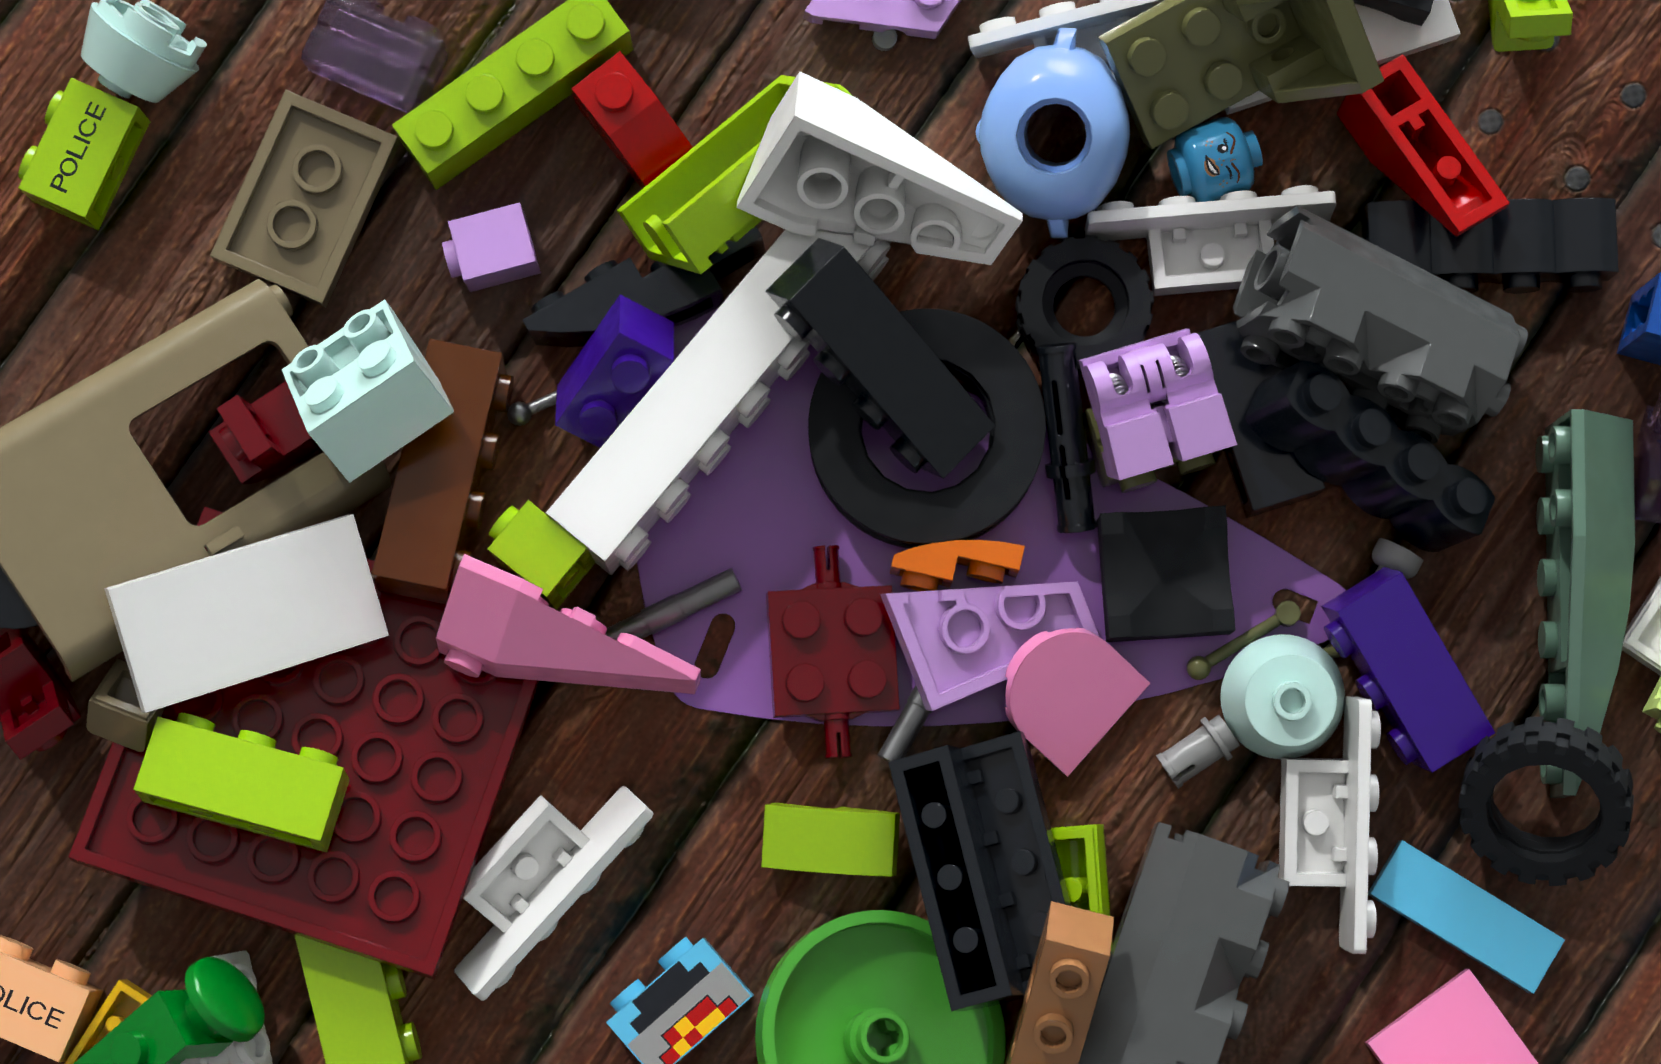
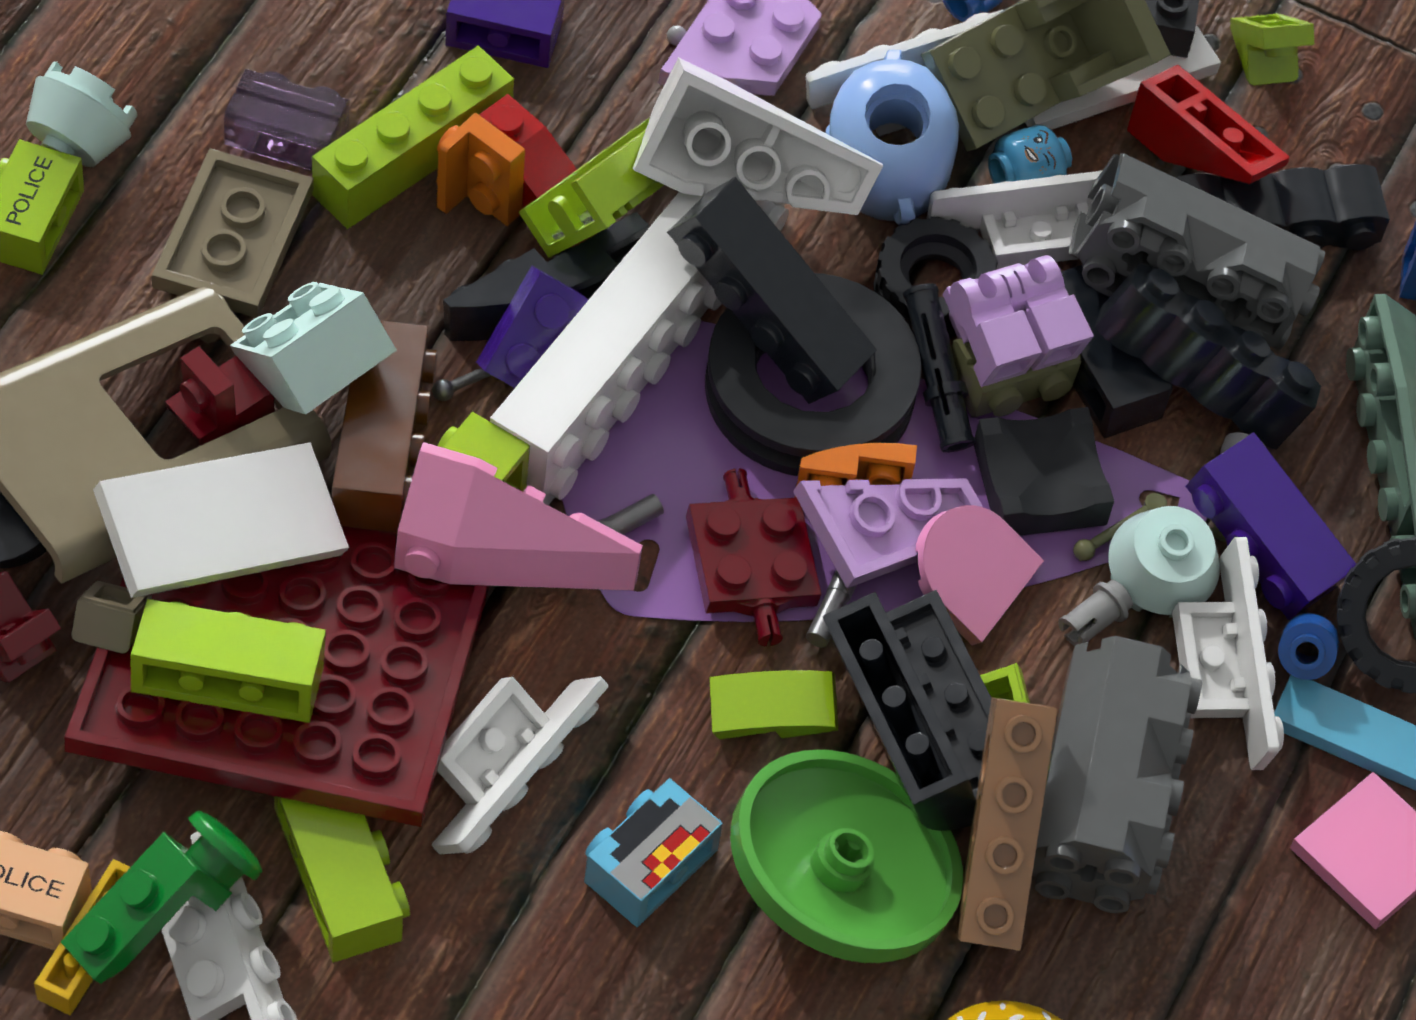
camera: 15 degrees left, 25 degrees down
(491, 248) = (407, 258): lavender brick -> none
(574, 135) = (482, 165): none -> orange bracket
(1423, 821) = (1311, 629): none -> blue brick

